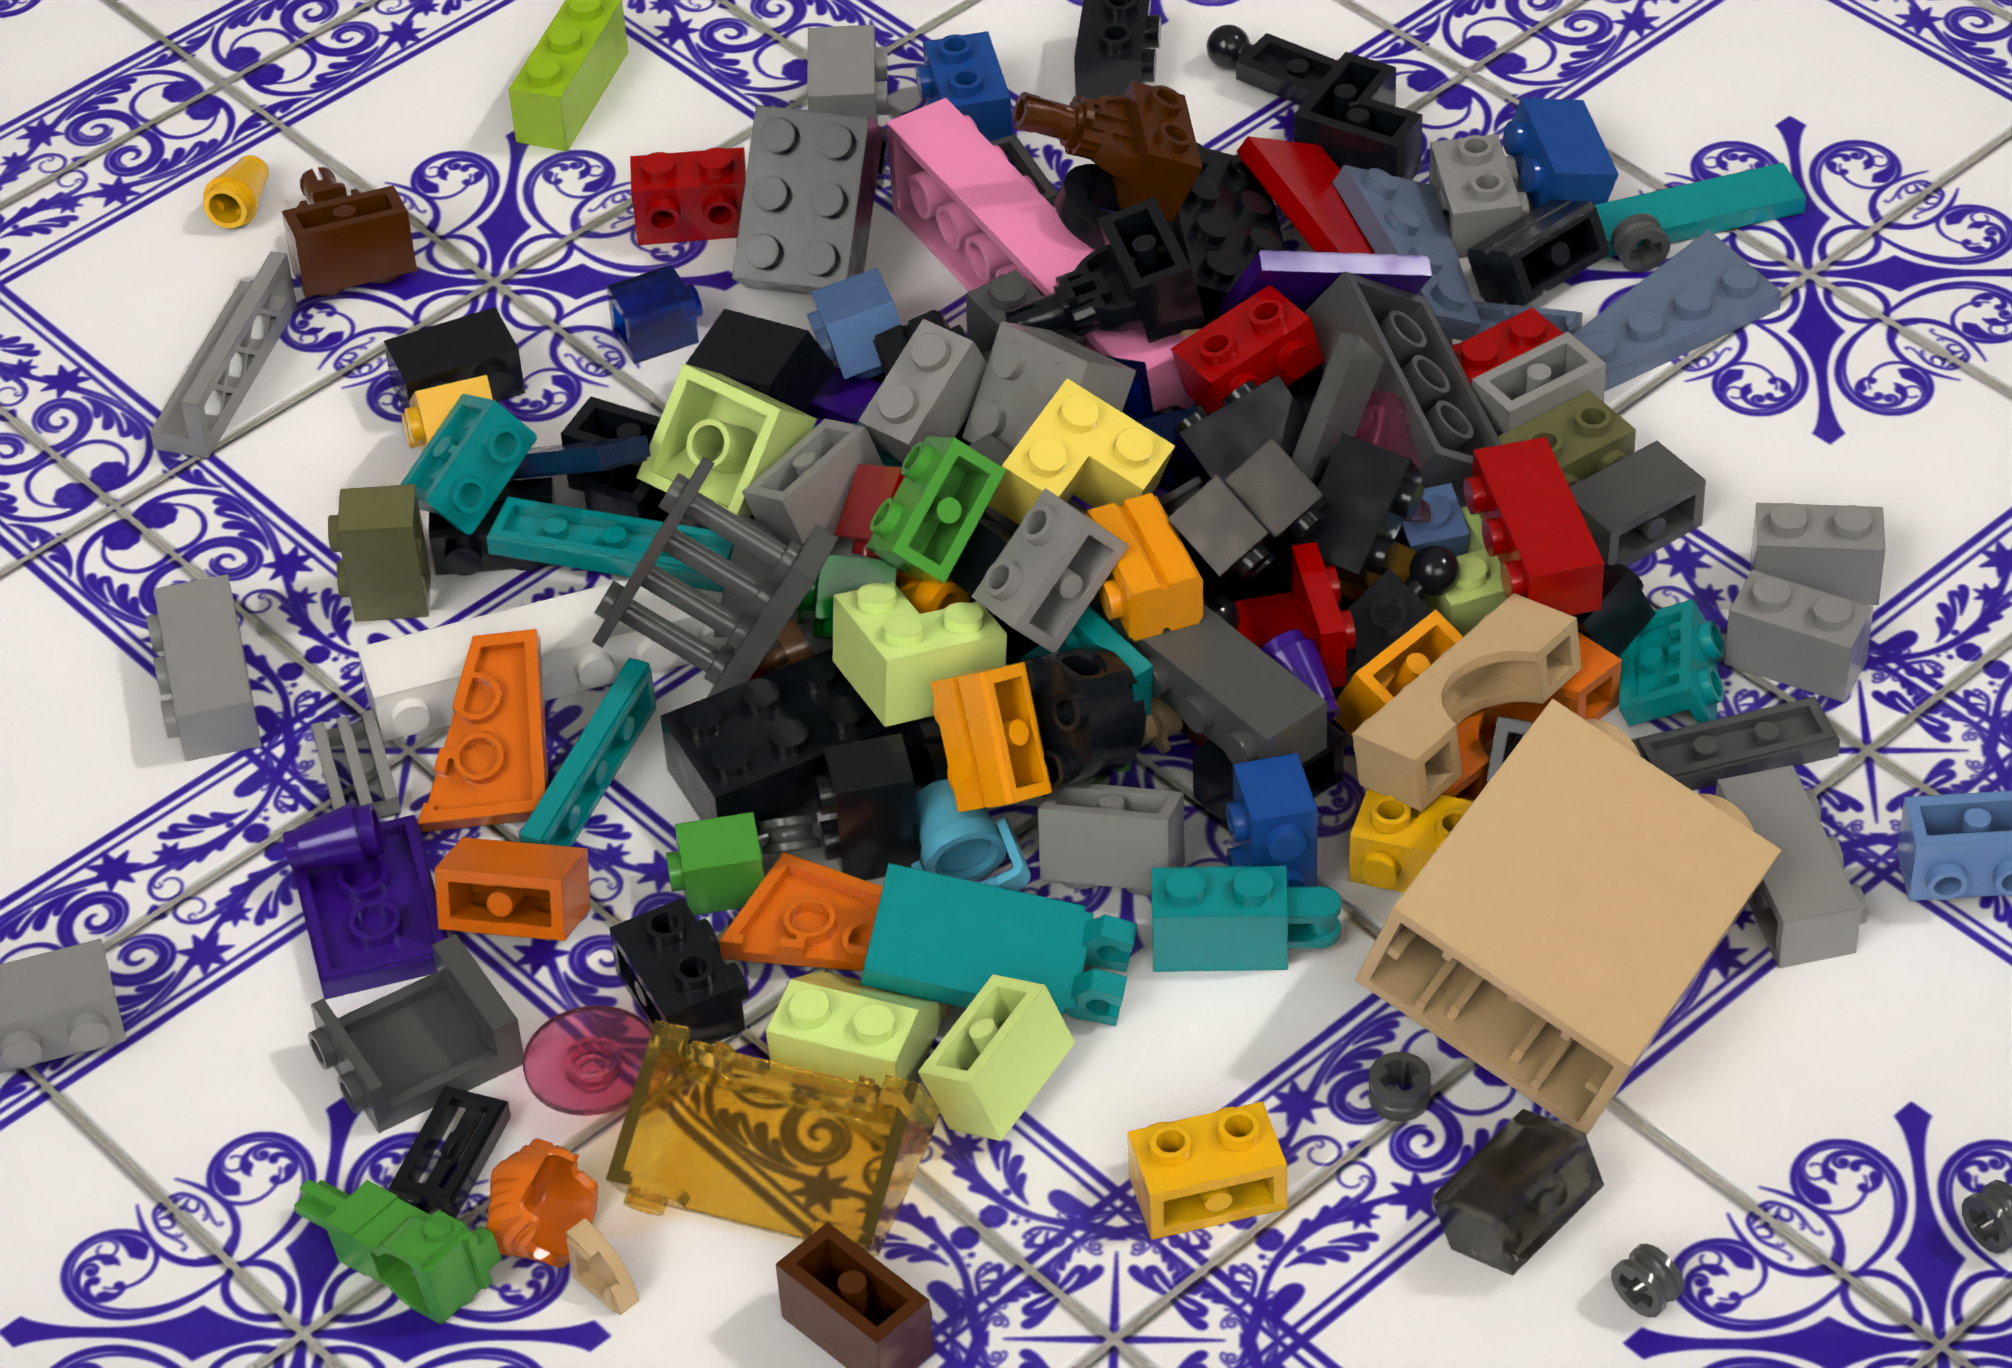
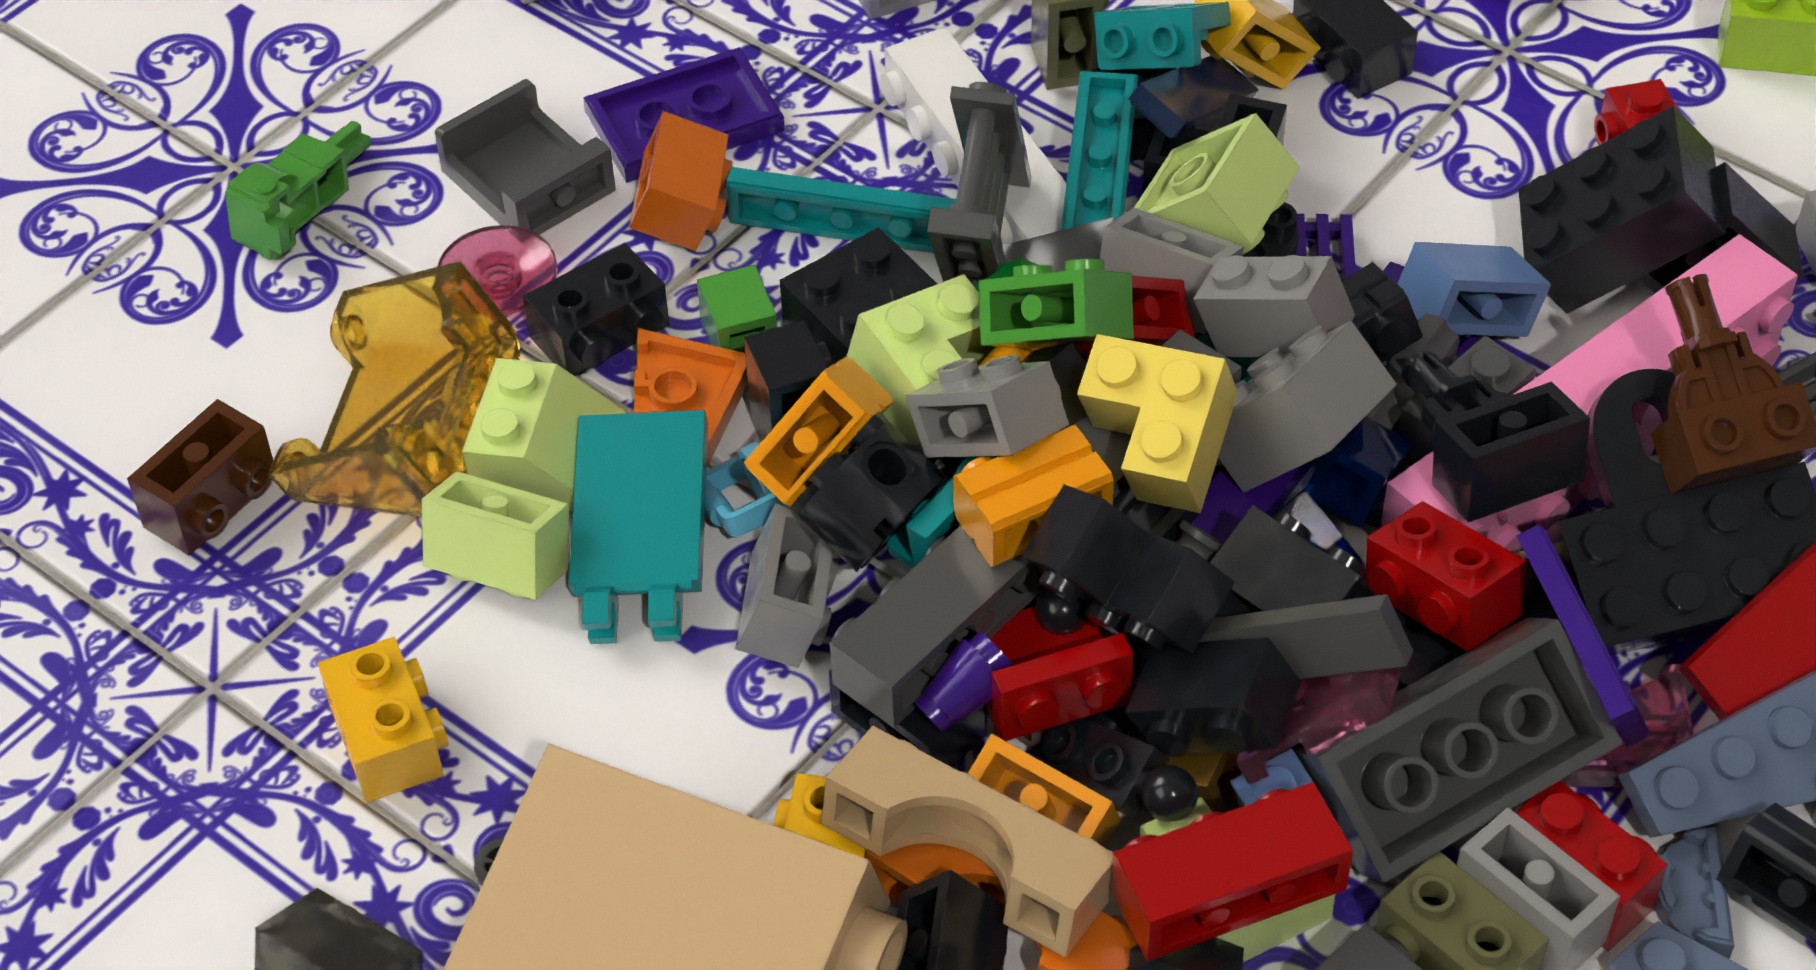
camera: 80 degrees right, 5 degrees up
(337, 838) = (725, 66): dark purple cone -> none
(348, 735) = (834, 74): light grey tile -> none
(469, 1168) = (411, 217): black tile -> none
(497, 738) = (865, 137): orange wing -> none
(537, 1200) = (325, 258): orange hair -> none
(600, 1268) = (278, 317): tan tile -> none
(654, 313) = (1469, 152): clear blue brick -> none
(765, 357) = (1383, 222): black brick -> none
(1236, 918) = (698, 700): teal brick -> none
(1274, 818) = (790, 708): blue brick -> none

